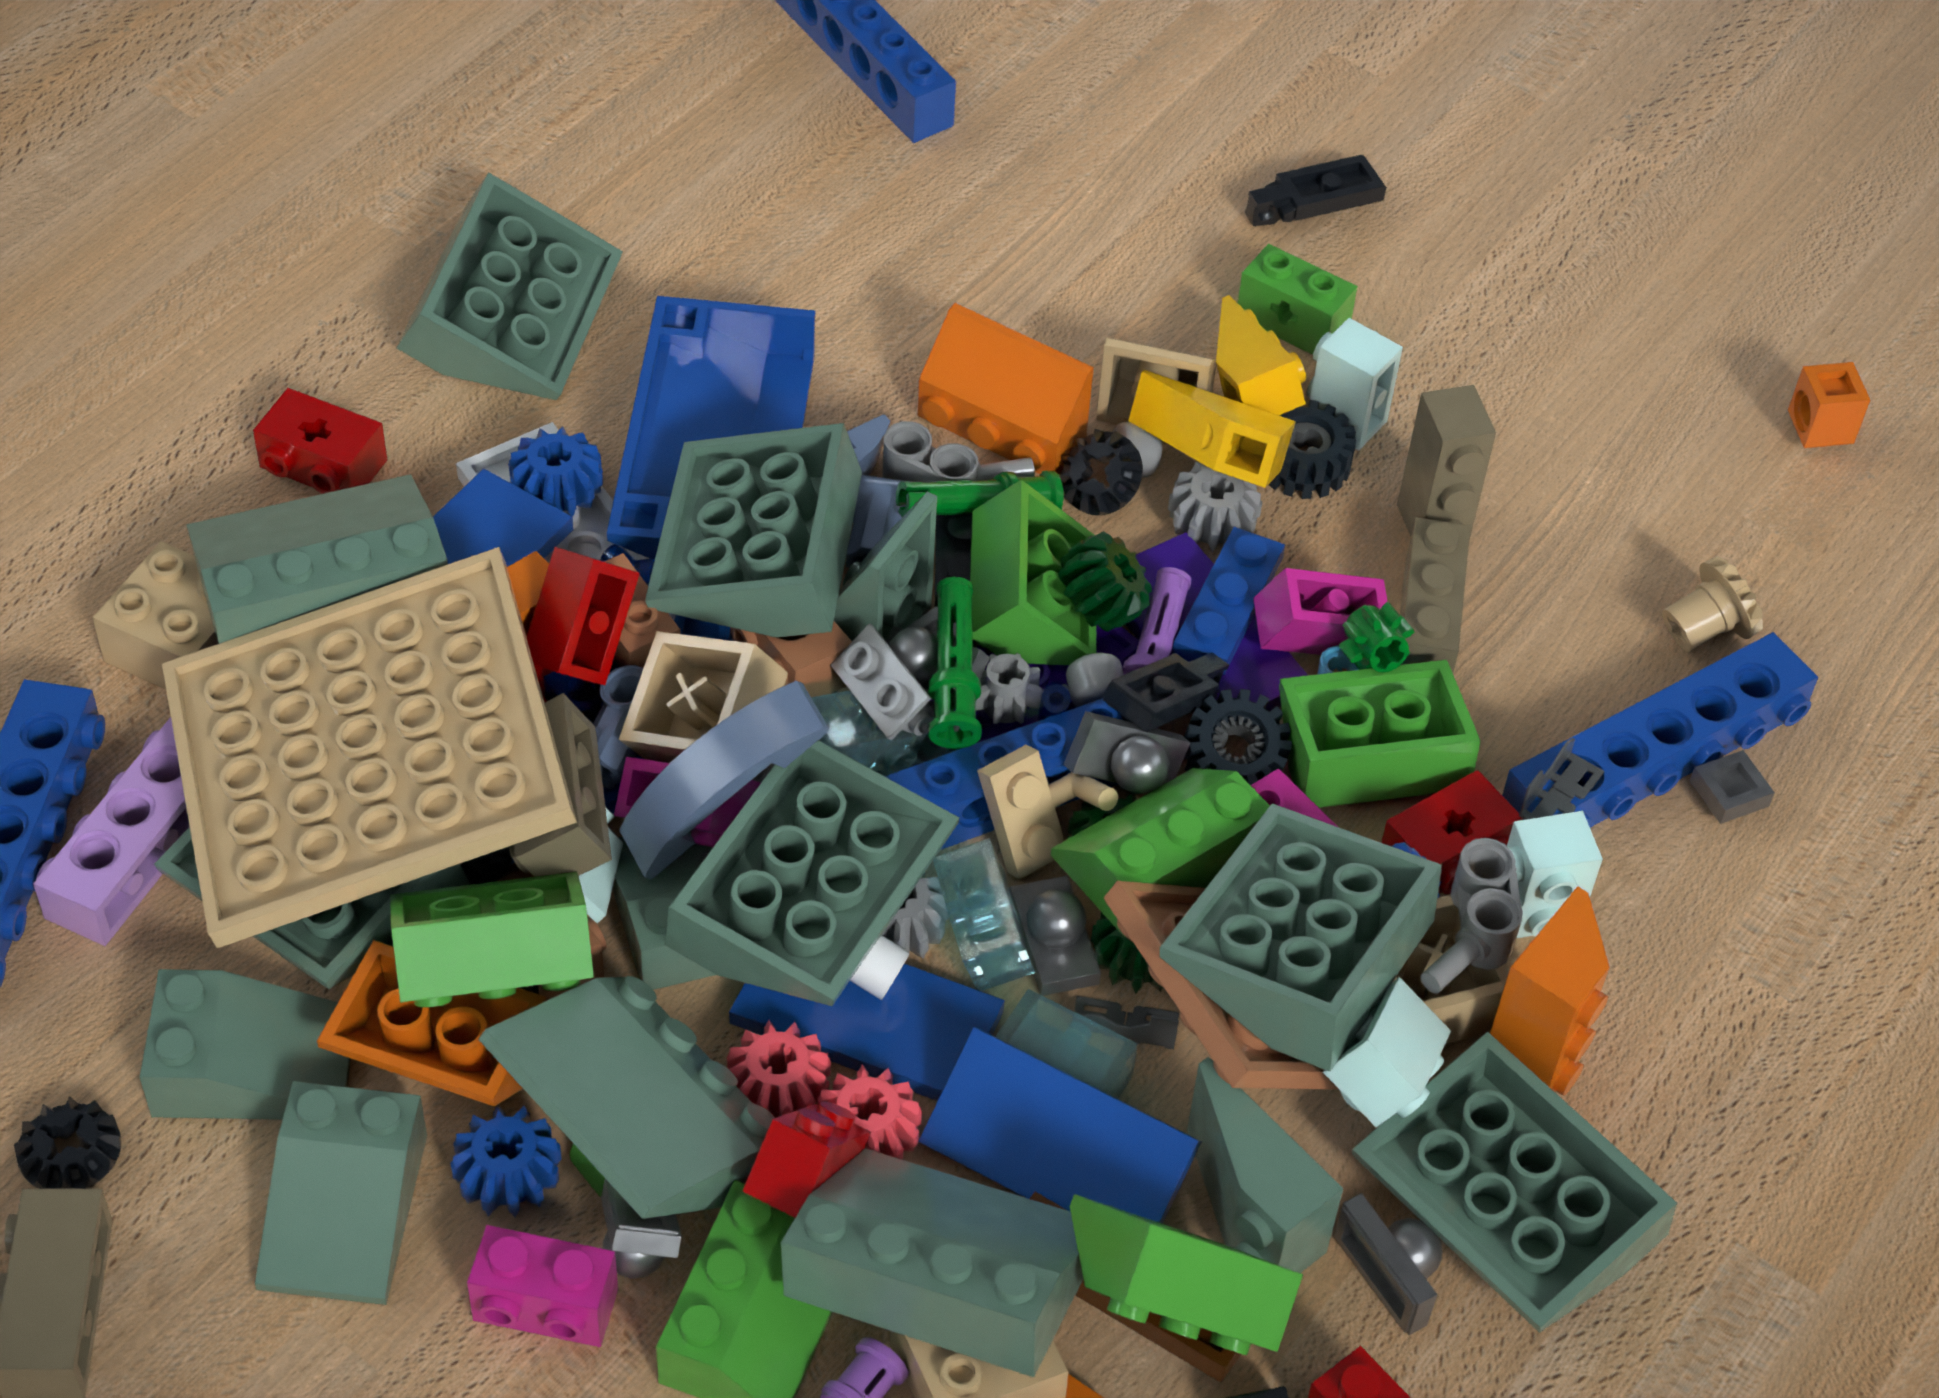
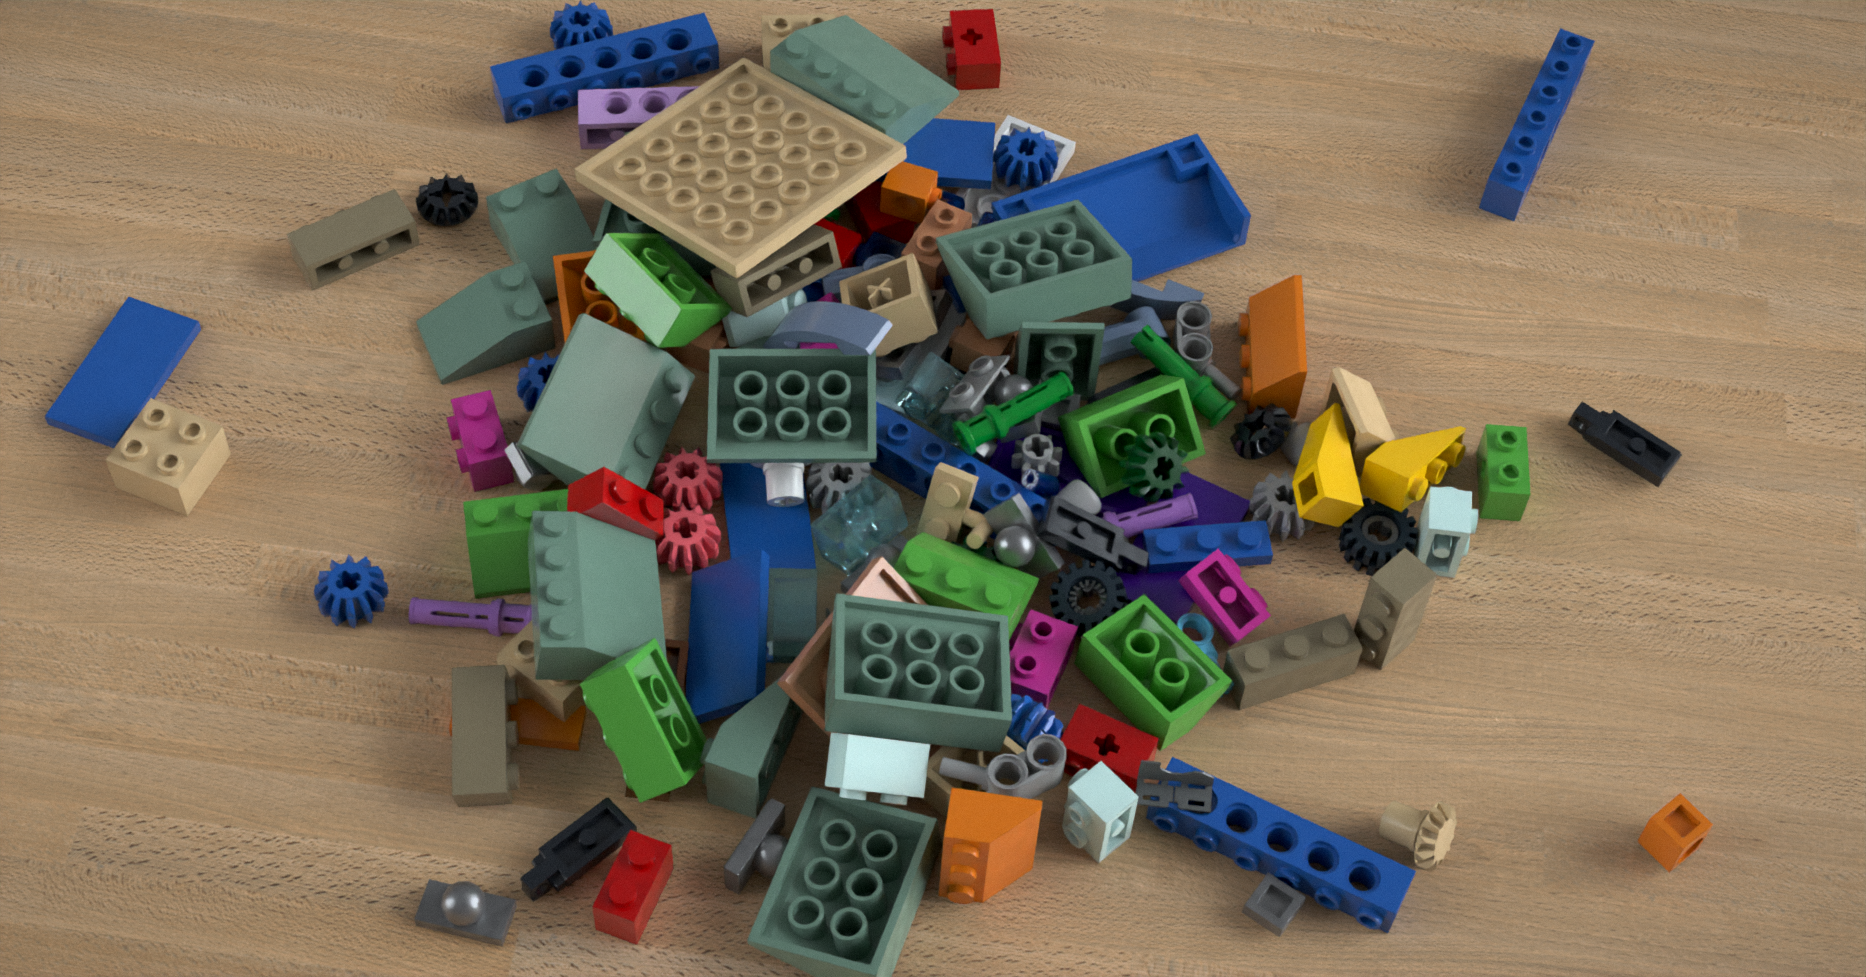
camera: 60 degrees right, 5 degrees up
(511, 294) = (1161, 71): sand green slope -> none
(580, 615) = (900, 213): red brick -> none
(1376, 638) = (1210, 629): green gear -> none

